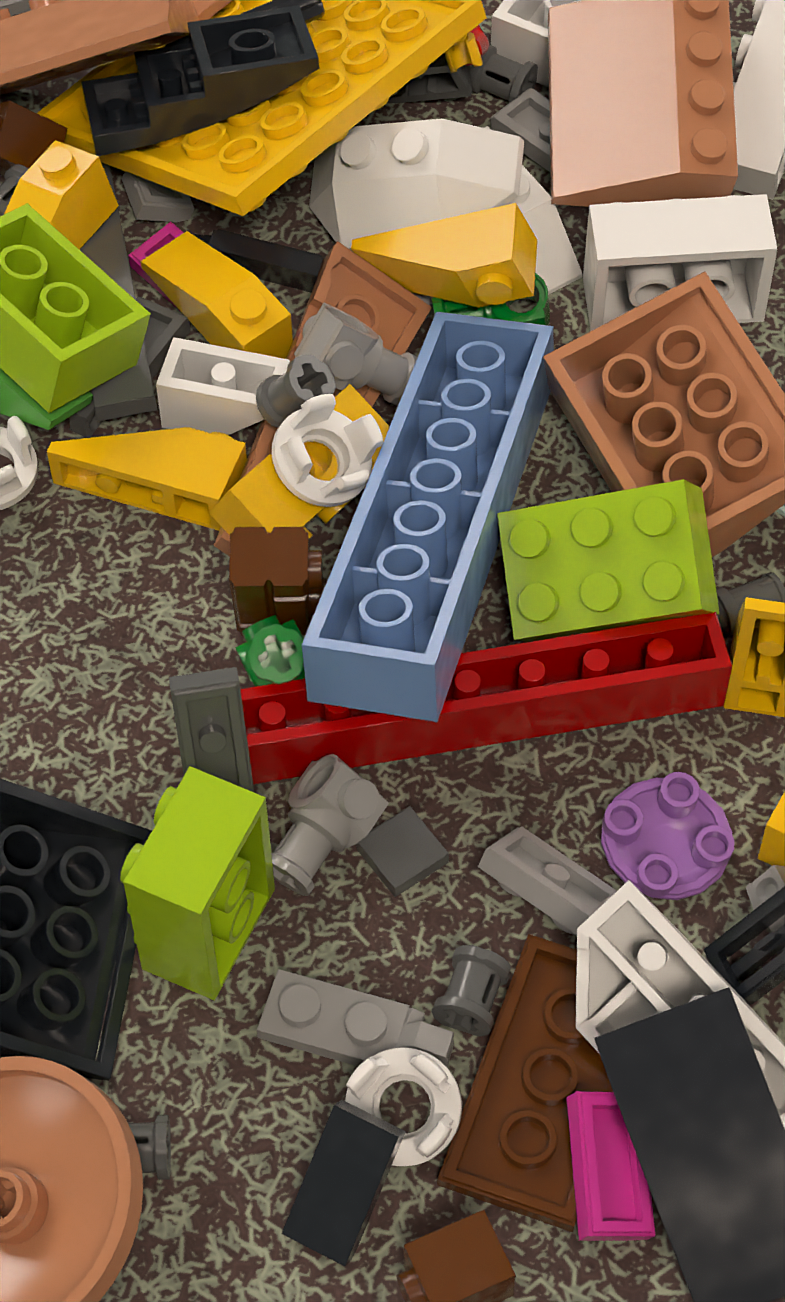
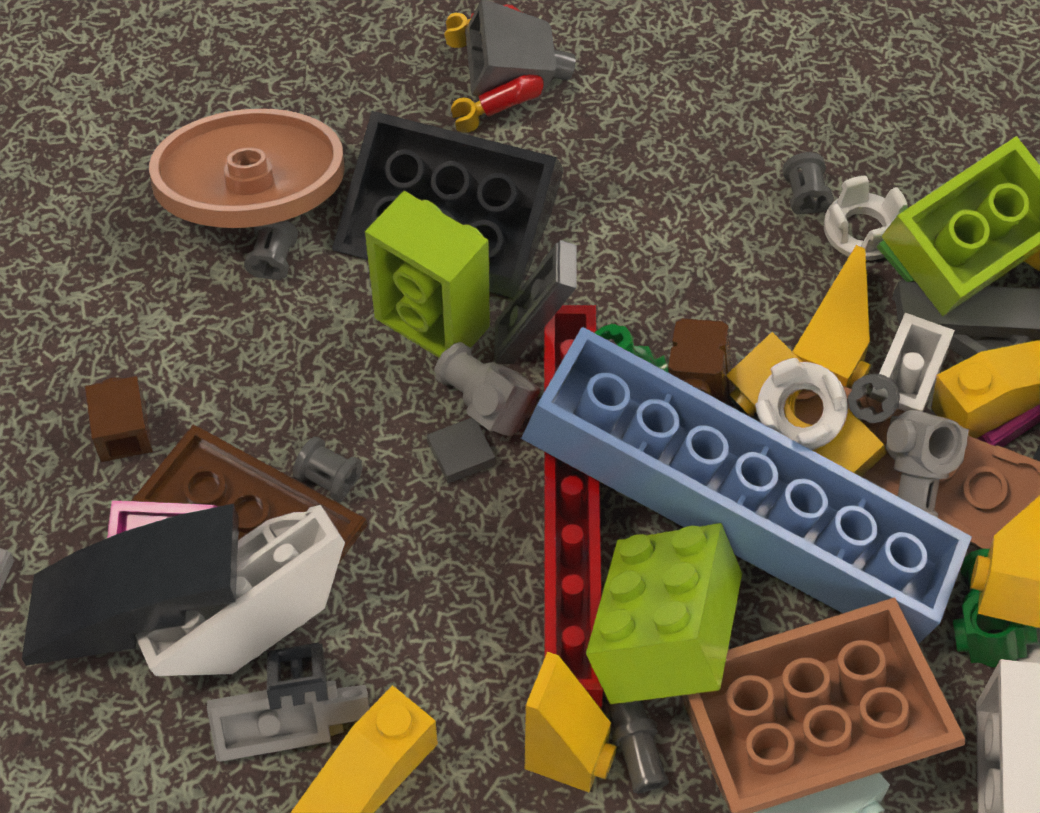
camera: 100 degrees right, 0 degrees up
(343, 1182) = (200, 355): black tile -> none
(345, 1022) = (327, 392): light grey hinge -> none
(414, 1065) = (258, 399): white piece -> none
(545, 878) = (393, 546): light grey hinge -> none
(667, 837) = (425, 637): medium lavender dish -> none

